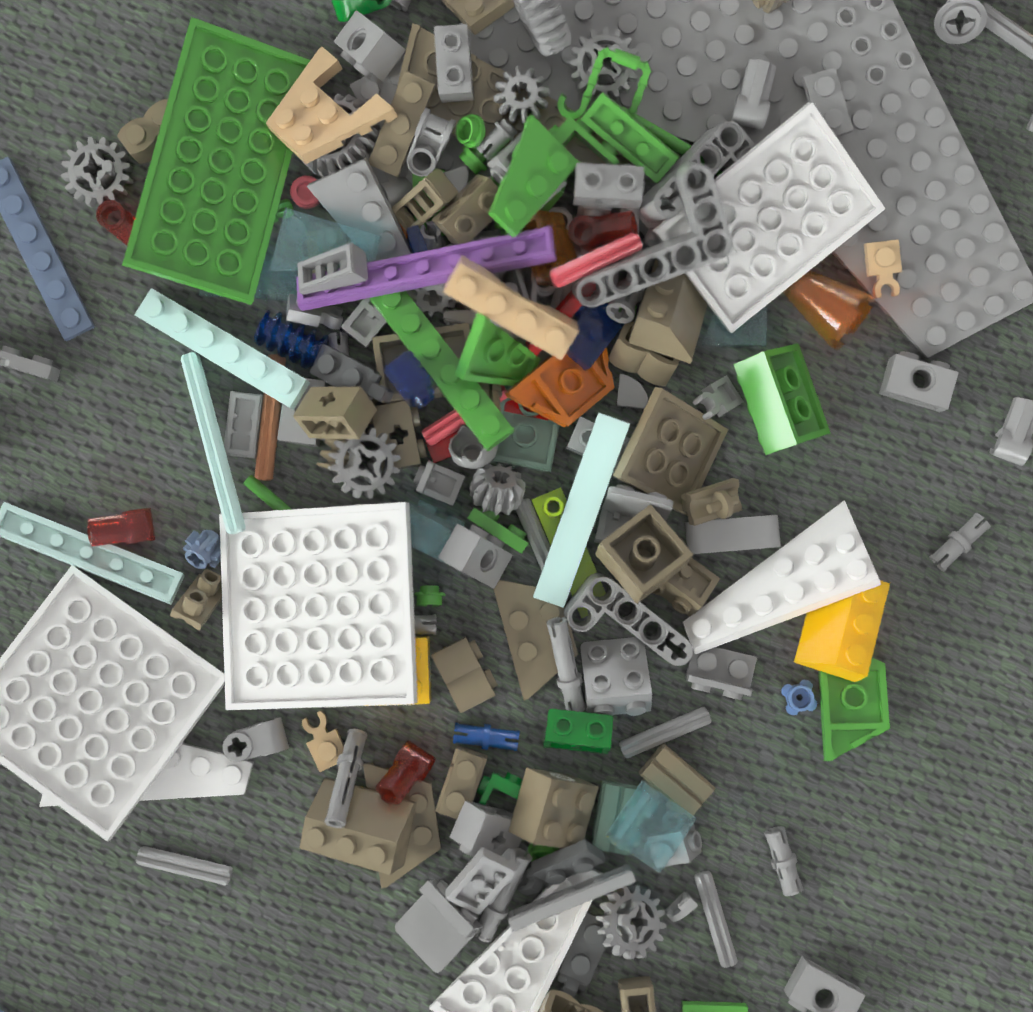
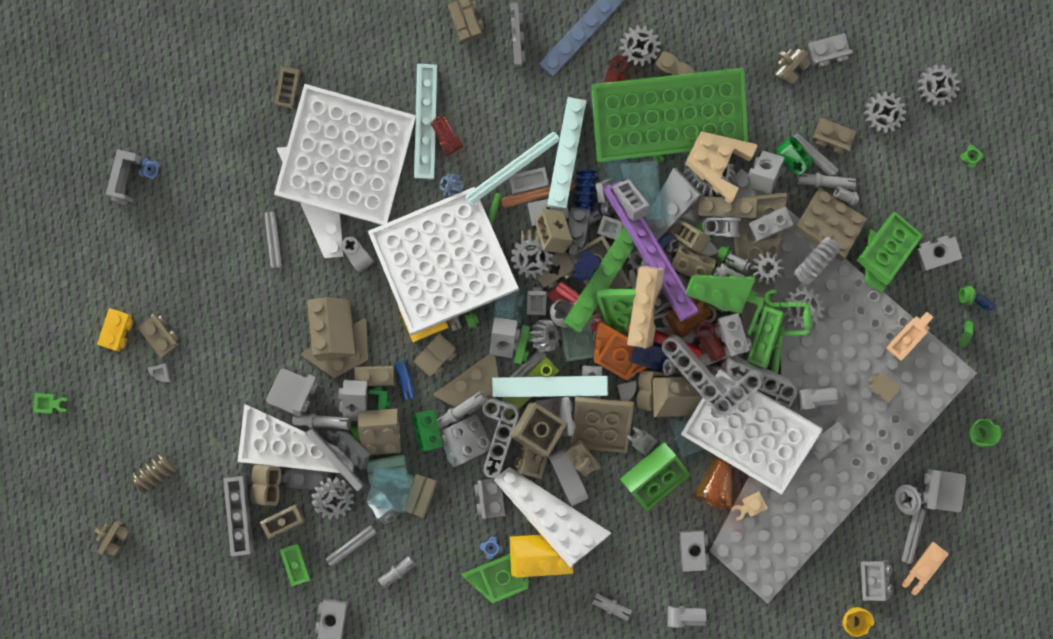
camera: 70 degrees right, 0 degrees up
(199, 599) = (423, 193): dark tan hips -> none
(301, 194) = (672, 162): coral tile -> none
(325, 745) = (366, 293): tan plate -> none
(349, 765) = (362, 310): light grey pin -> none
(409, 766) = (372, 343): clear red piece -> none
(470, 130) = (737, 247): bright green plate -> none
(482, 880) = (327, 406): light grey bracket -> none
(596, 260) = (688, 342): coral axle -> none
(665, 732) = (443, 479): light grey axle -> none
(684, 904) = (350, 523): light grey tile -> none

